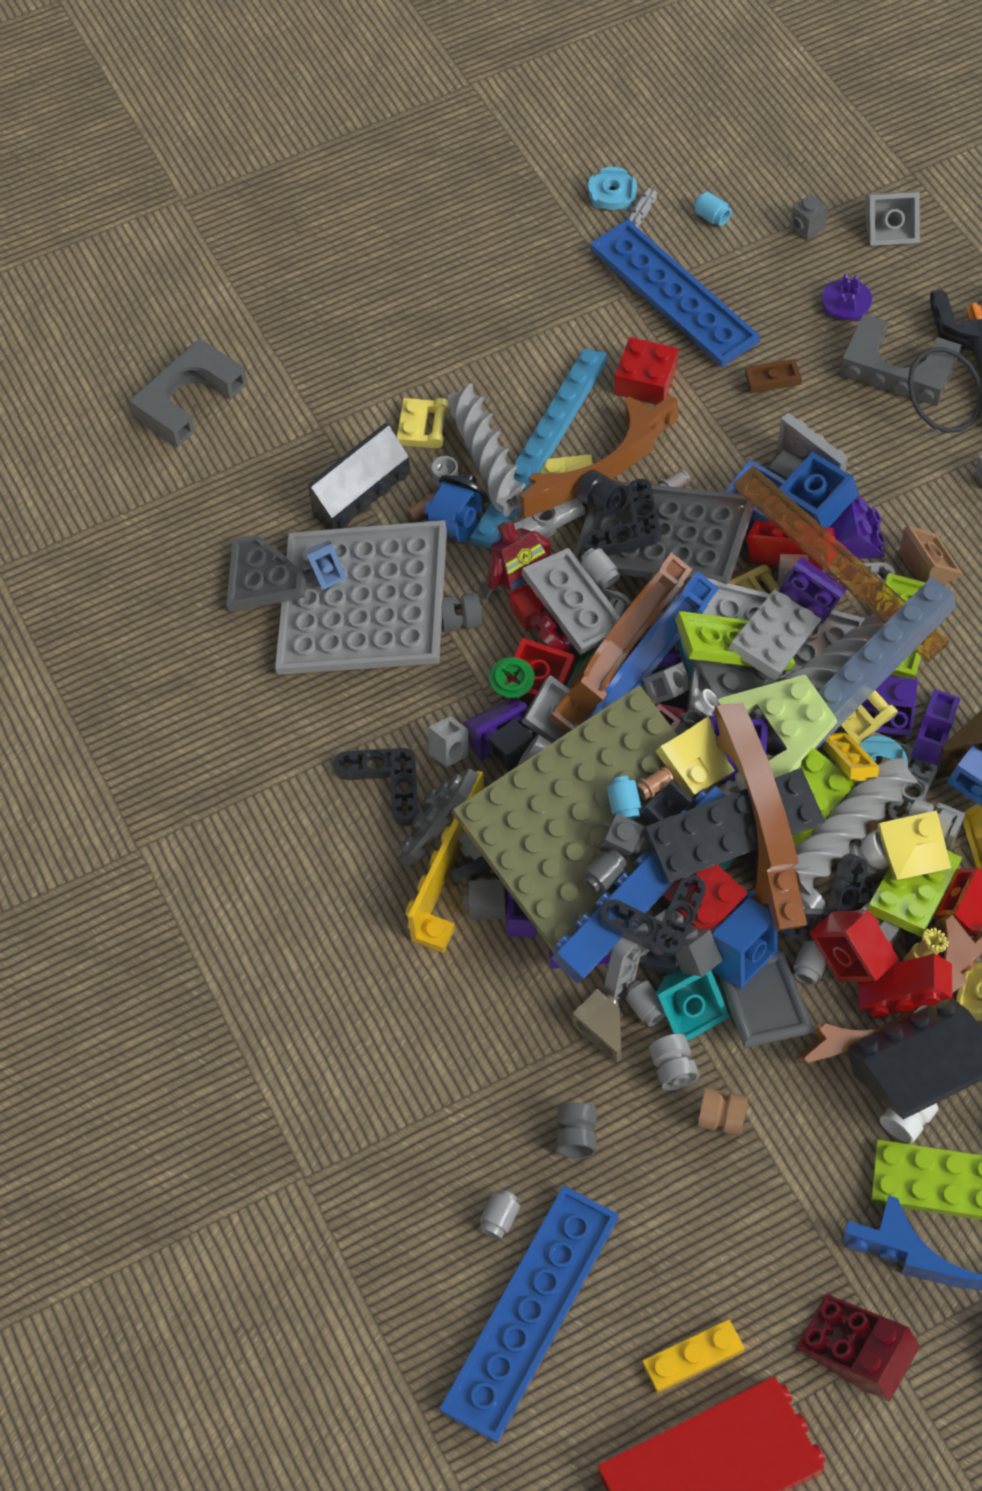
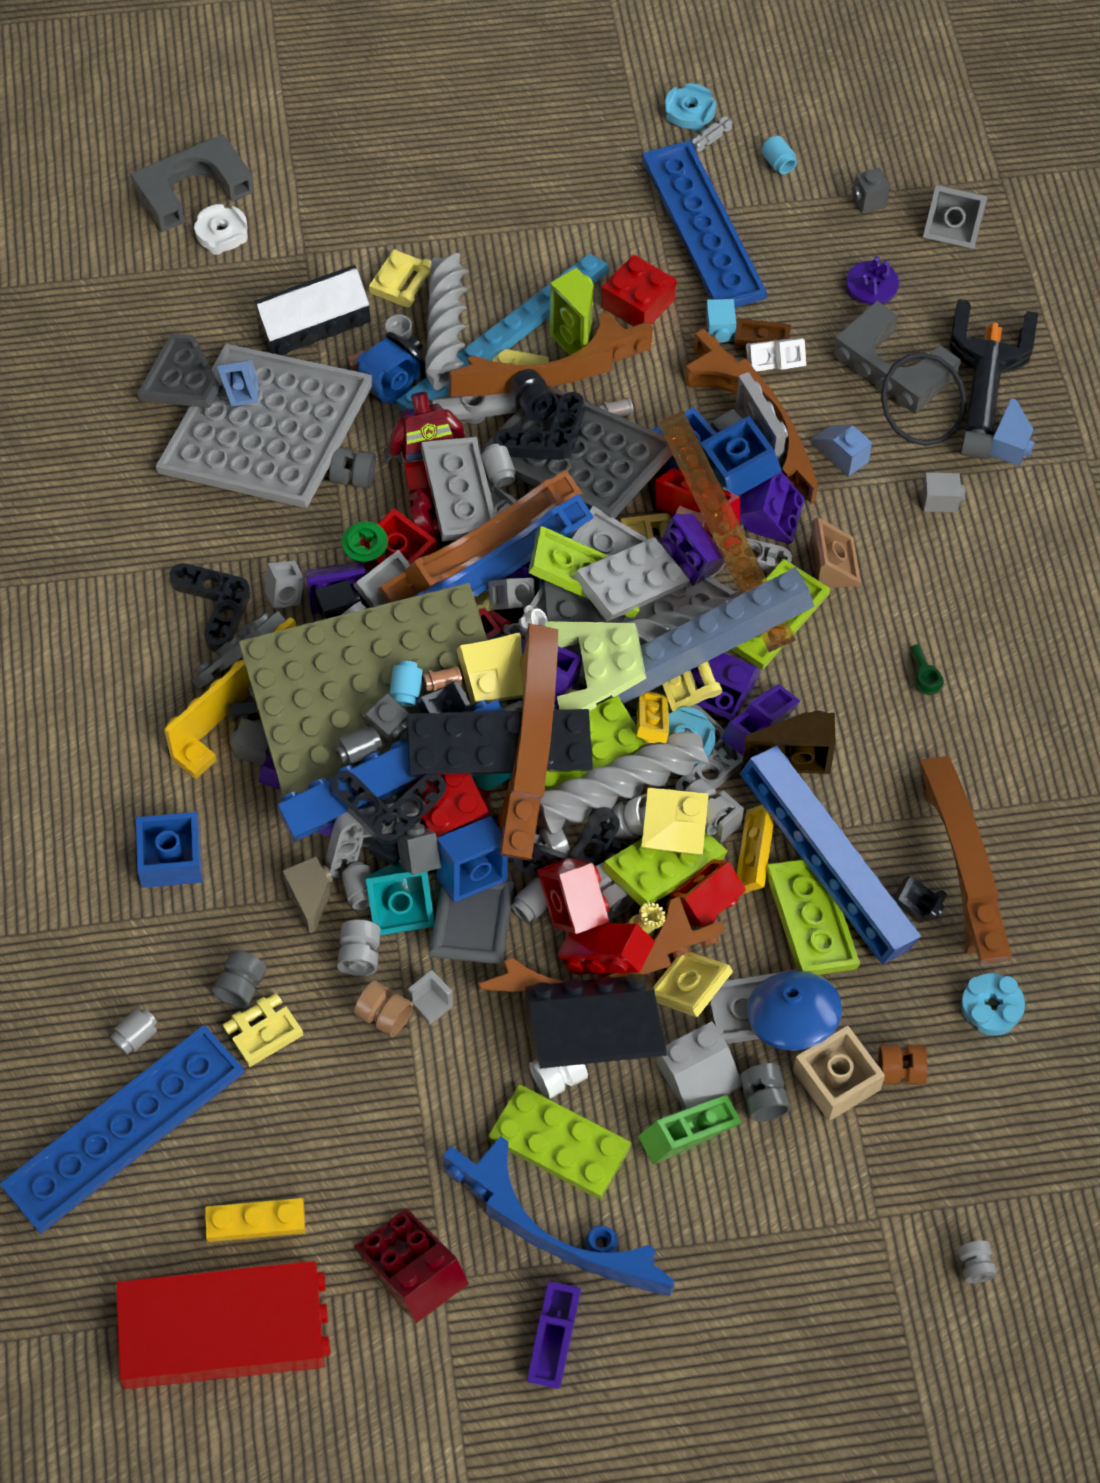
camera: 15 degrees right, 0 degrees up
(238, 438) = (221, 240): none -> white plate
(456, 1029) = (169, 849): none -> blue brick
(603, 407) = (571, 310): none -> lime slope
(625, 1175) = (266, 1036): none -> light yellow plate
(730, 374) = (721, 319): none -> medium azure brick
(752, 419) = (721, 371): none -> dark orange slope
(761, 1085) = (431, 997): none -> light grey panel
(794, 390) = (776, 354): none -> white slope
(891, 454) = (844, 447): none -> medium blue slope

